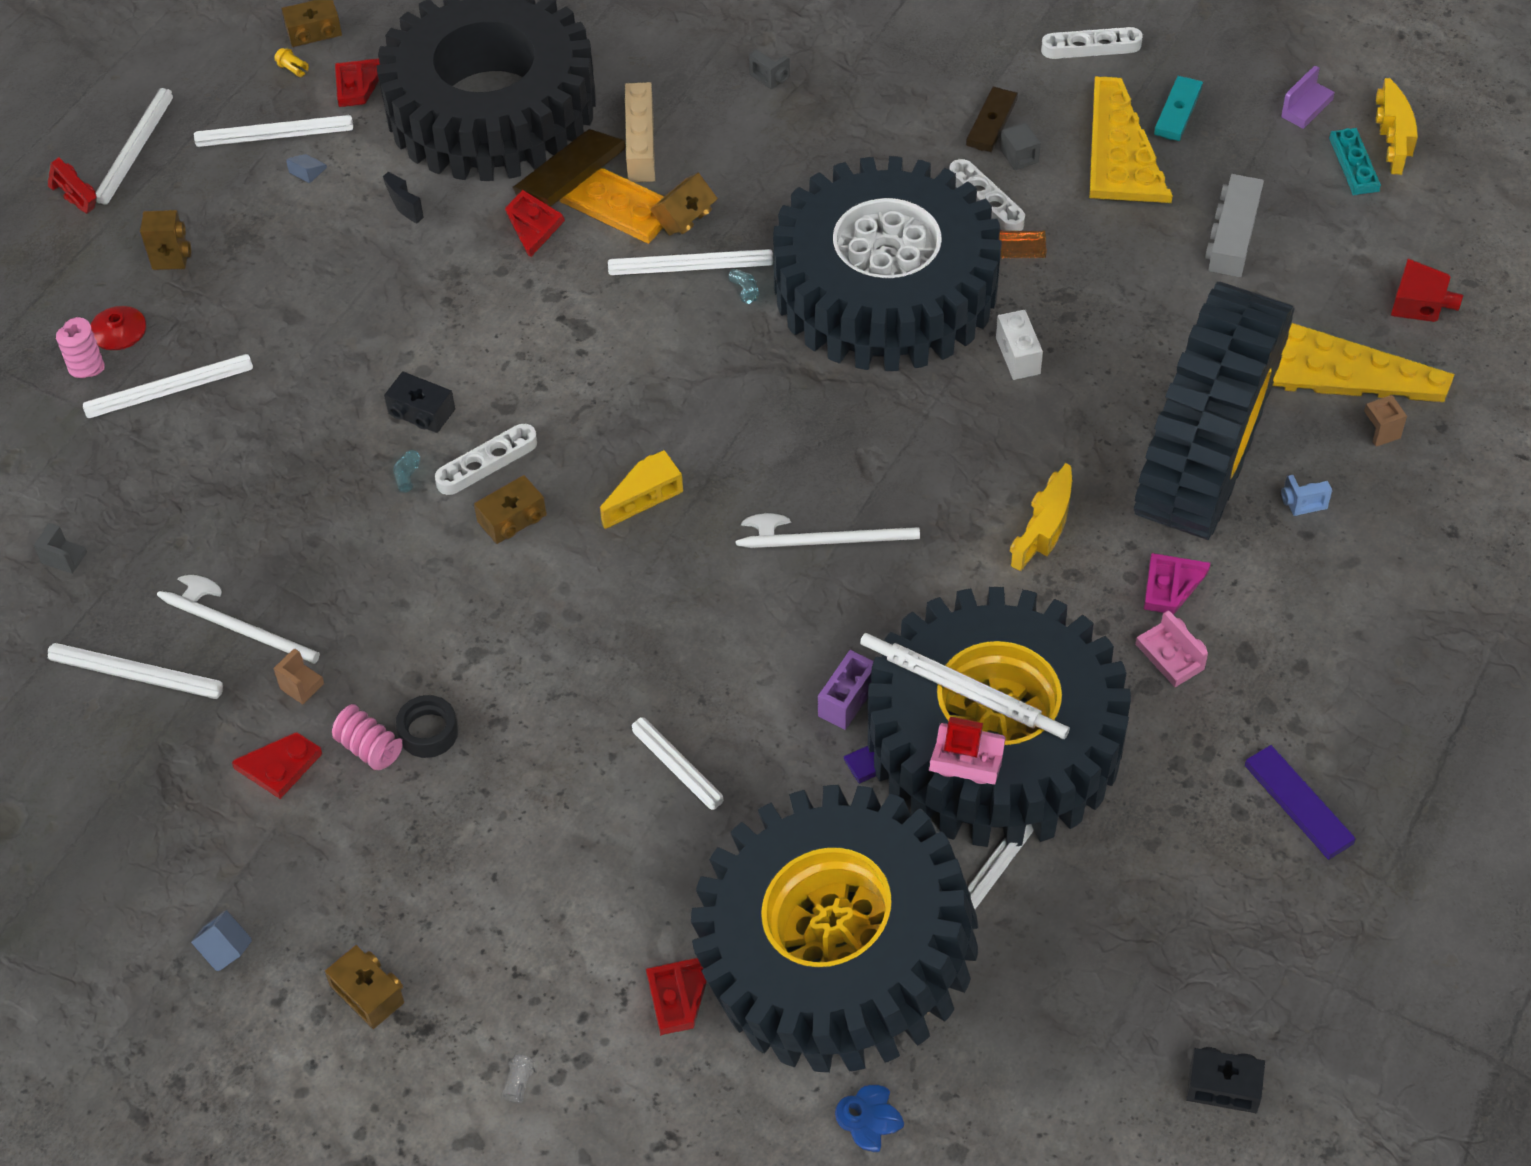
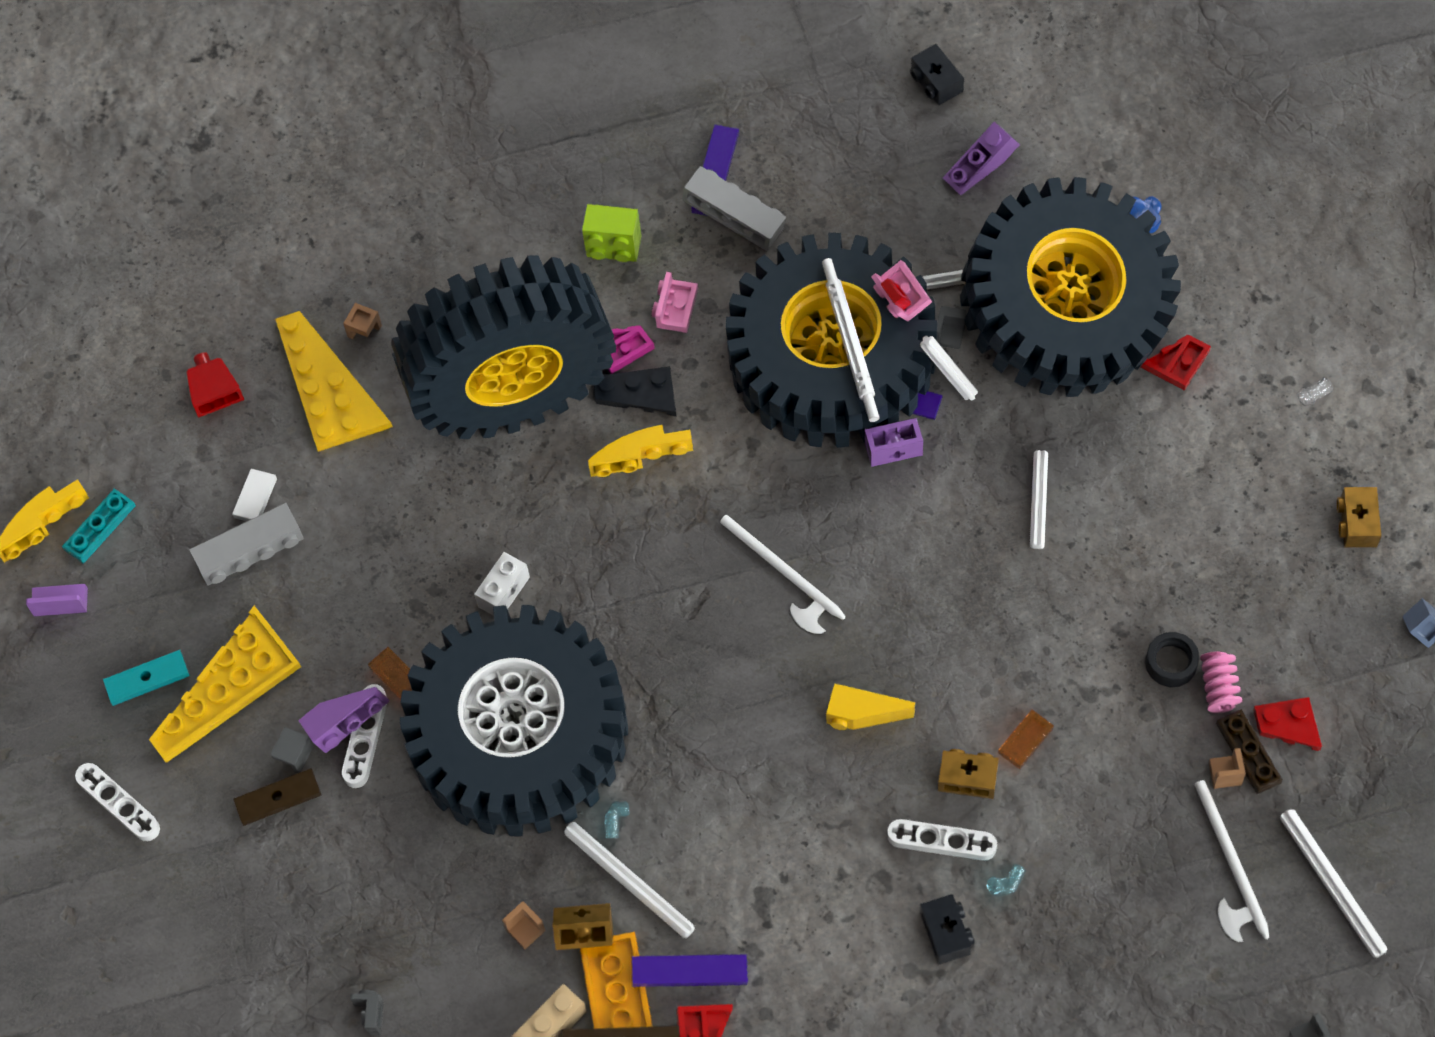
camera: 130 degrees left, 10 degrees up
(292, 714) = (1258, 764): none -> dark brown tile
(493, 577) = (1025, 739): none -> clear orange tile
(580, 244) = (689, 970): none -> dark purple tile
(728, 185) = (523, 925): none -> medium nougat panel
(866, 755) = (948, 368): none -> white axle
(1011, 176) = (337, 718): none -> medium lavender slope
(1079, 1032) = (981, 158): none -> medium lavender slope
(1111, 568) = (638, 389): none -> black wing
(1231, 766) = (733, 208): none -> light grey brick
(1281, 261) = (254, 495): none -> white tile
(1297, 647) = (611, 233): none -> lime brick

